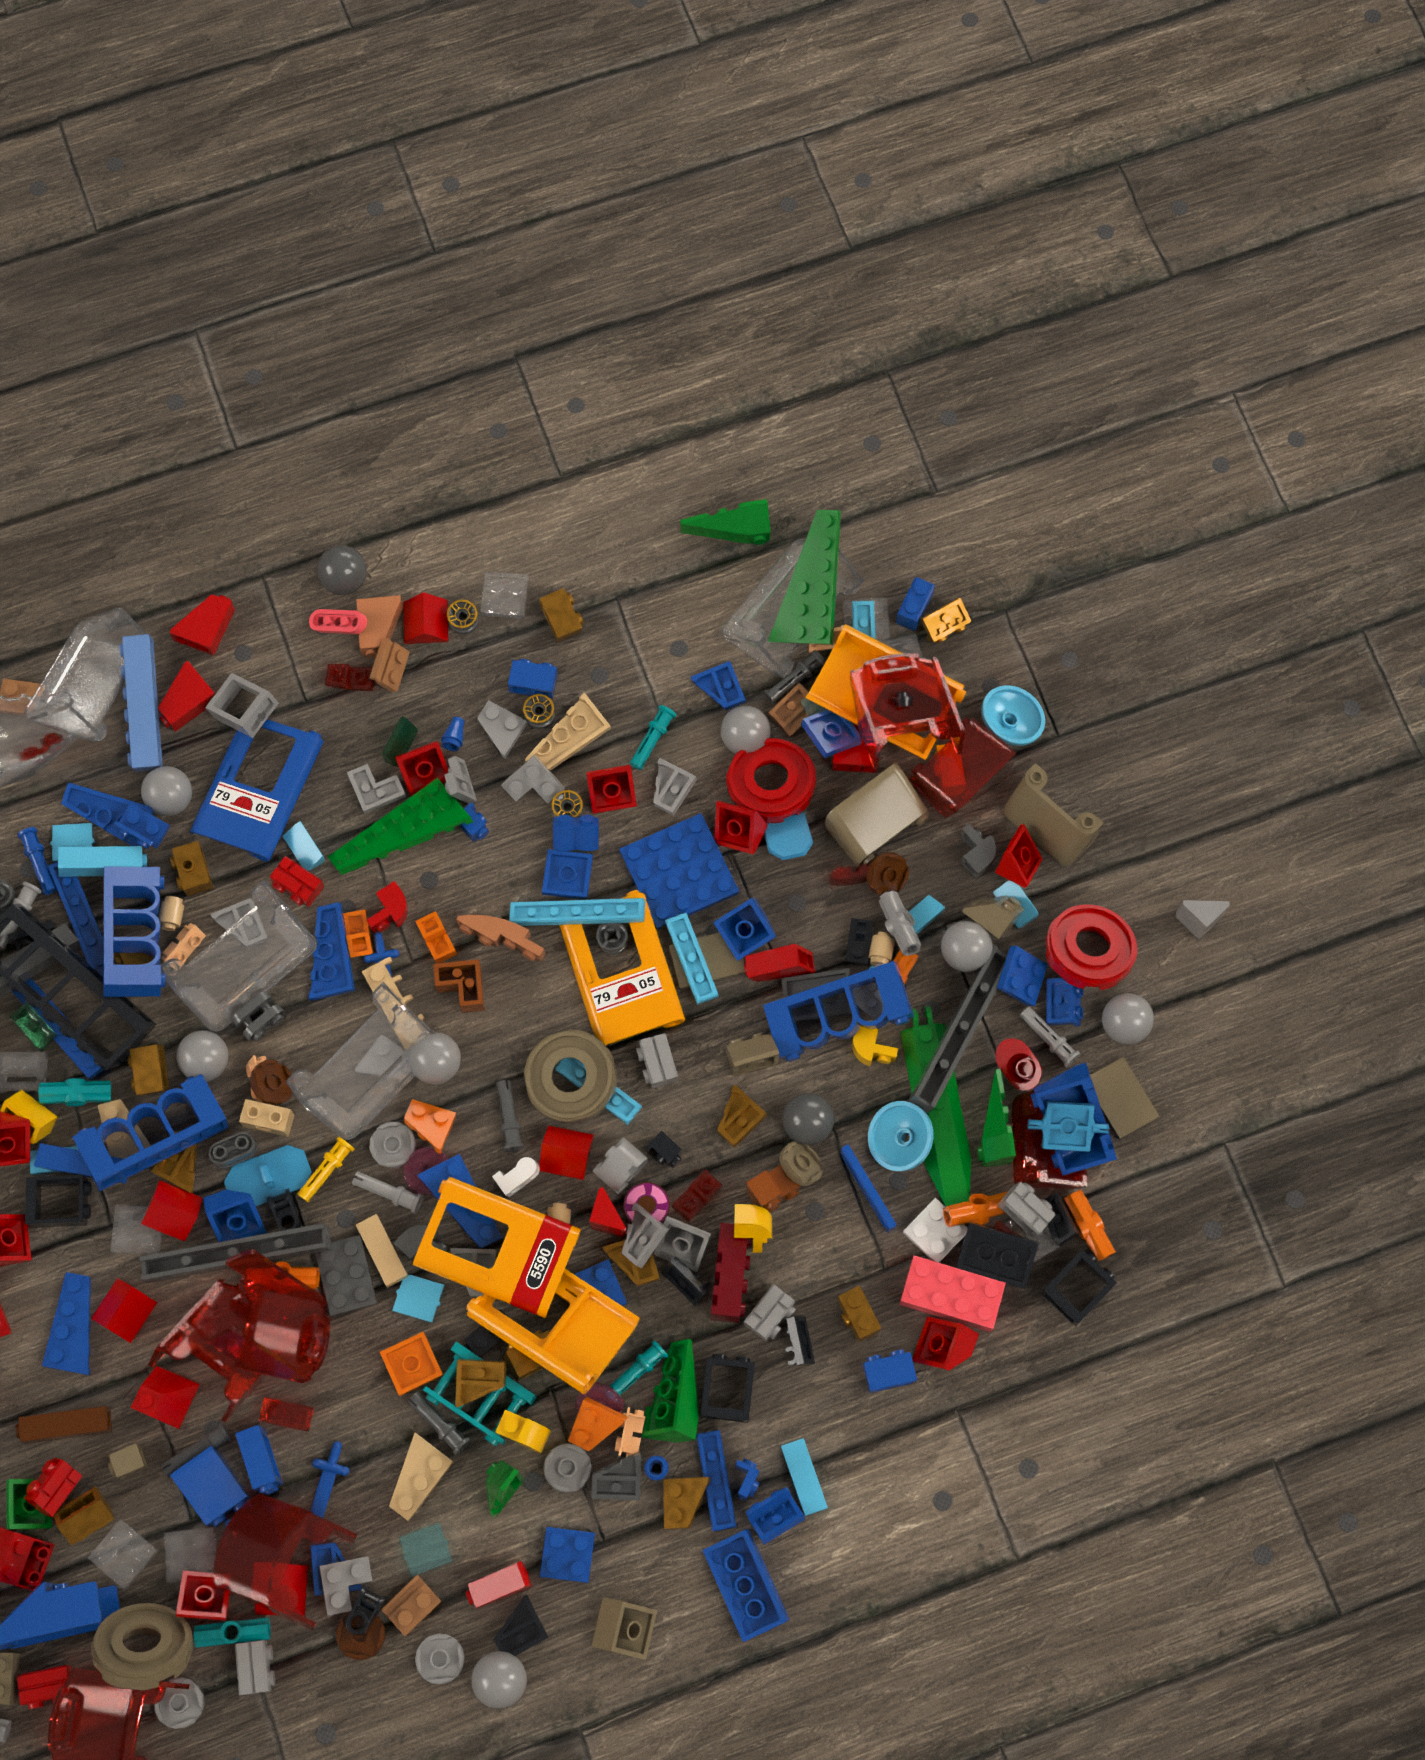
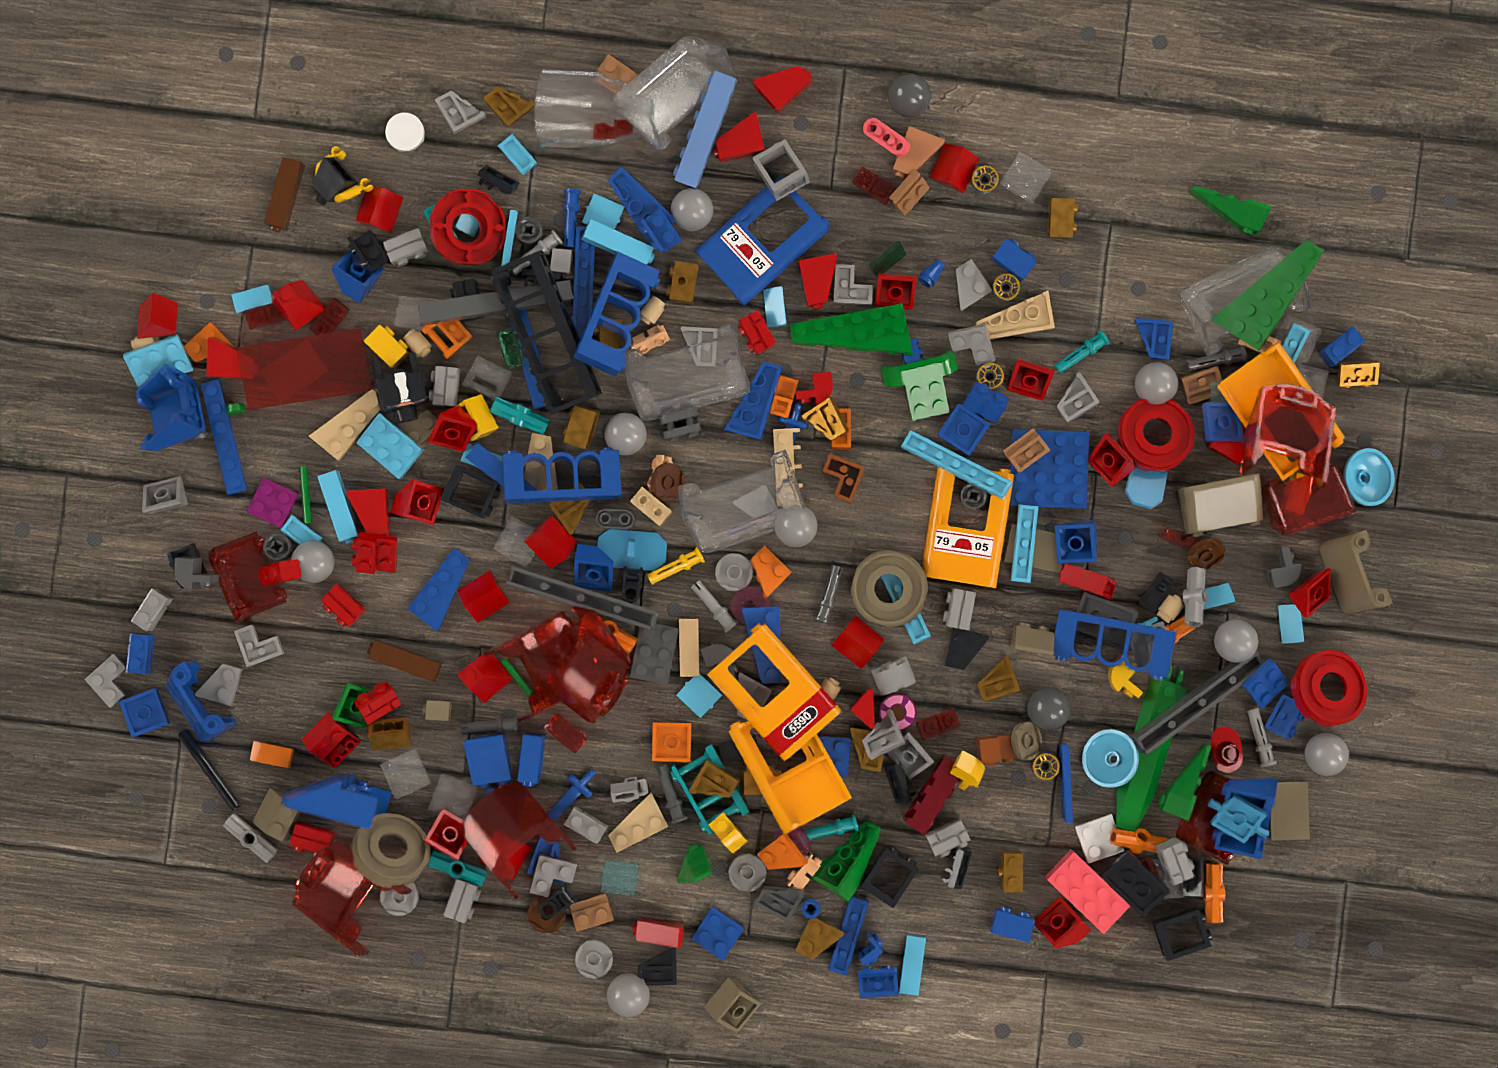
camera: 30 degrees right, 15 degrees up
(48, 907) = (561, 261): none -> light grey panel
(200, 1379) = (517, 677): none -> green bar
(334, 796) = (817, 279): none -> red slope
(357, 1506) = (586, 825): none -> light grey brick
(388, 1442) = (628, 790): none -> light grey piece
(415, 931) = (827, 419): none -> wing
(458, 781) = (916, 317): light grey plate -> none
(494, 930) = (886, 445): nougat slope -> none
(499, 847) = (923, 383): none -> piece
(518, 1177) = (821, 643): white leg -> none
(643, 861) = (1026, 450): none -> medium nougat plate
(664, 1150) = (931, 679): black brick -> none
(683, 1101) = (963, 648): none -> black wing
(746, 1585) = (833, 1019): blue slope -> none
(841, 1174) = (1048, 773): none -> wheel
(903, 699) = (1291, 427): black plate -> none
(995, 913) = (1270, 626): dark tan slope -> none
(1200, 915) = (1426, 709): light grey slope -> none

